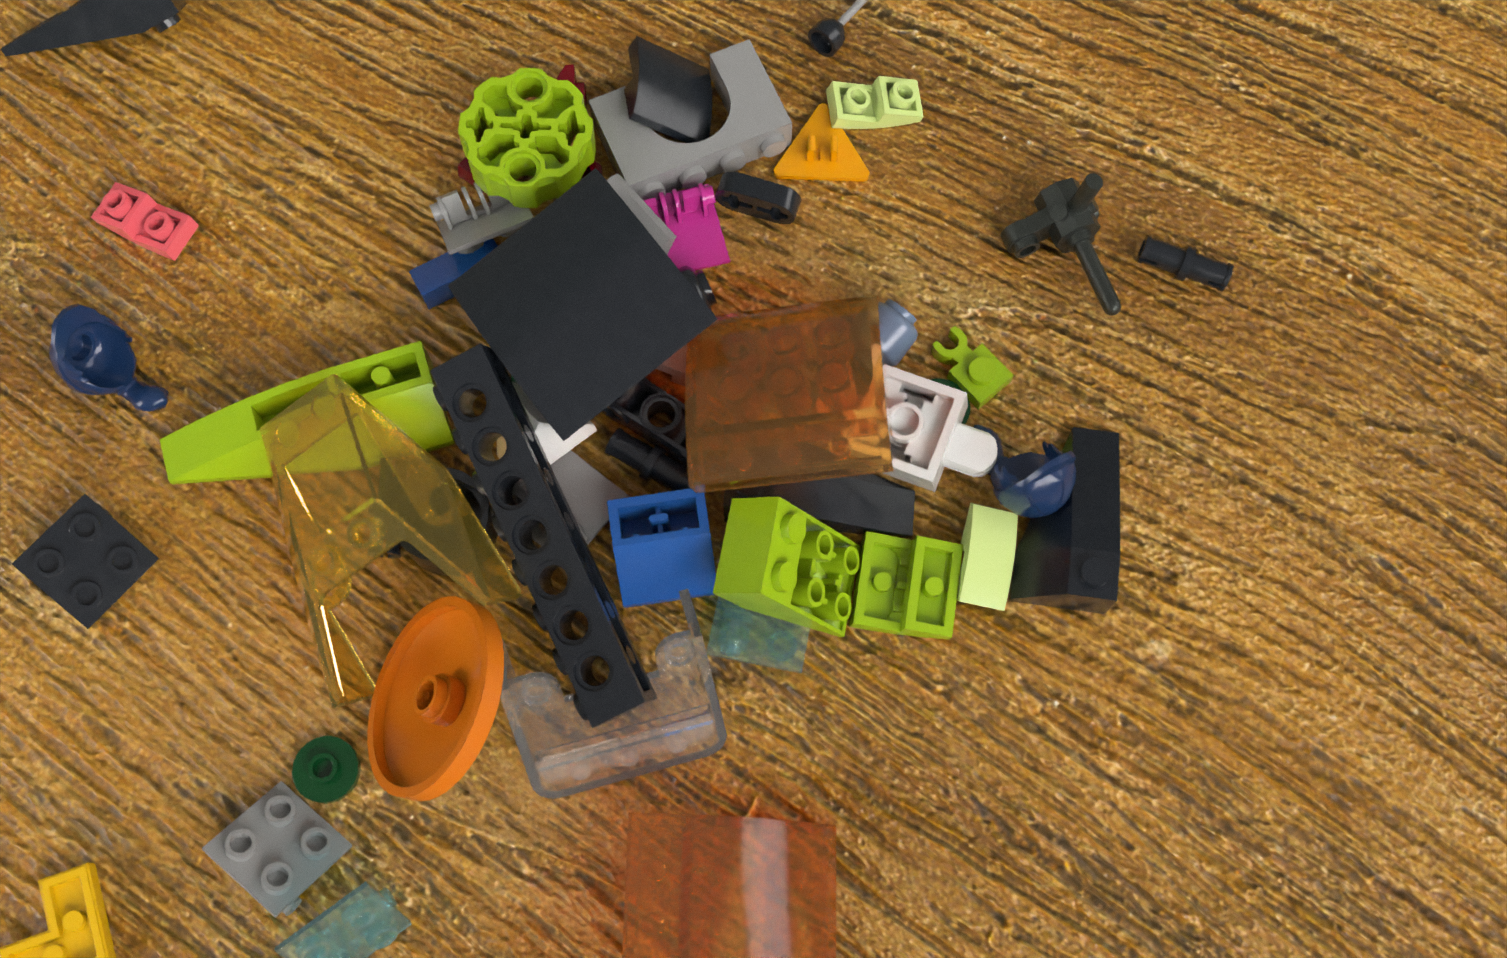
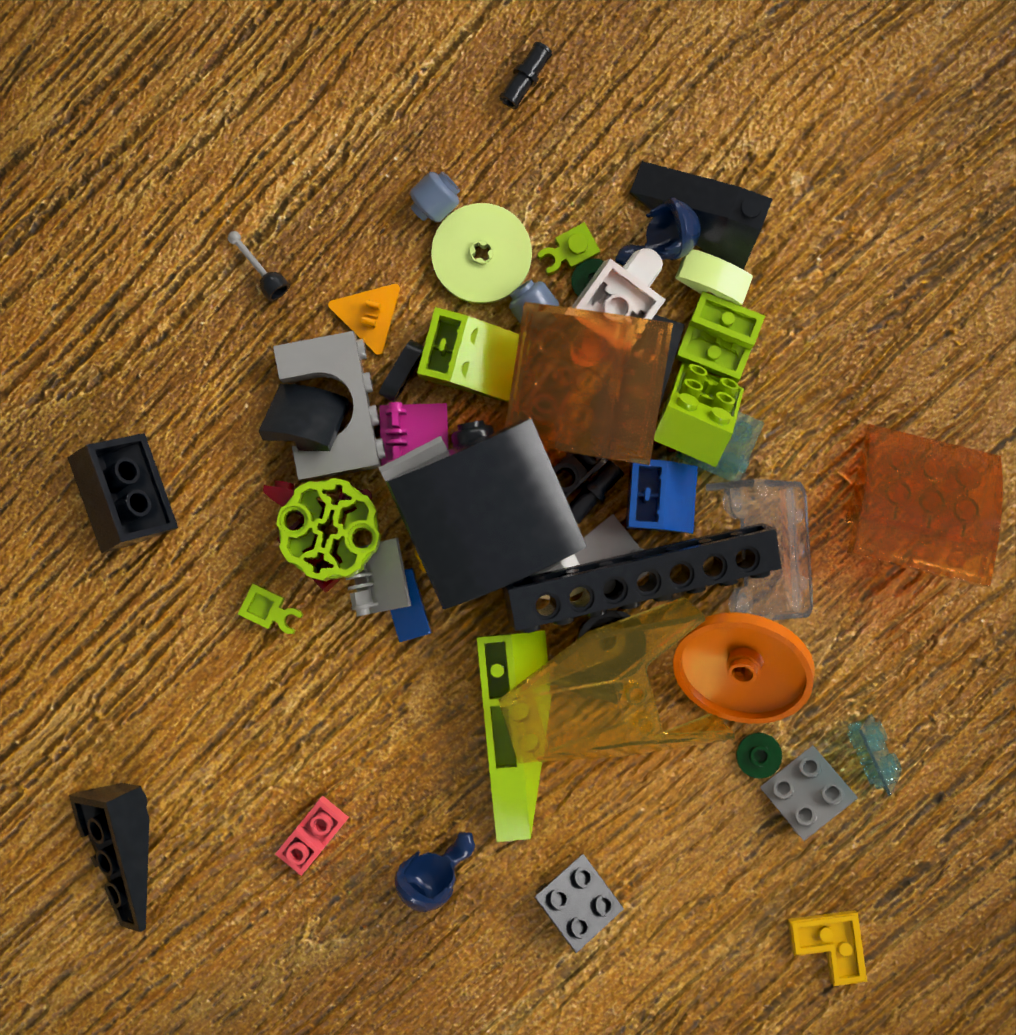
camera: 80 degrees left, 15 degrees up
(421, 108) = (265, 607): none -> lime plate
(796, 252) = (469, 355): none -> lime slope
(879, 105) = (339, 265): yellowish green slope -> none
(932, 230) = (484, 227): none -> yellowish green piece
(991, 187) = (434, 196): none -> sand blue head
(1070, 219) = (478, 147): pearl dark grey piece -> none

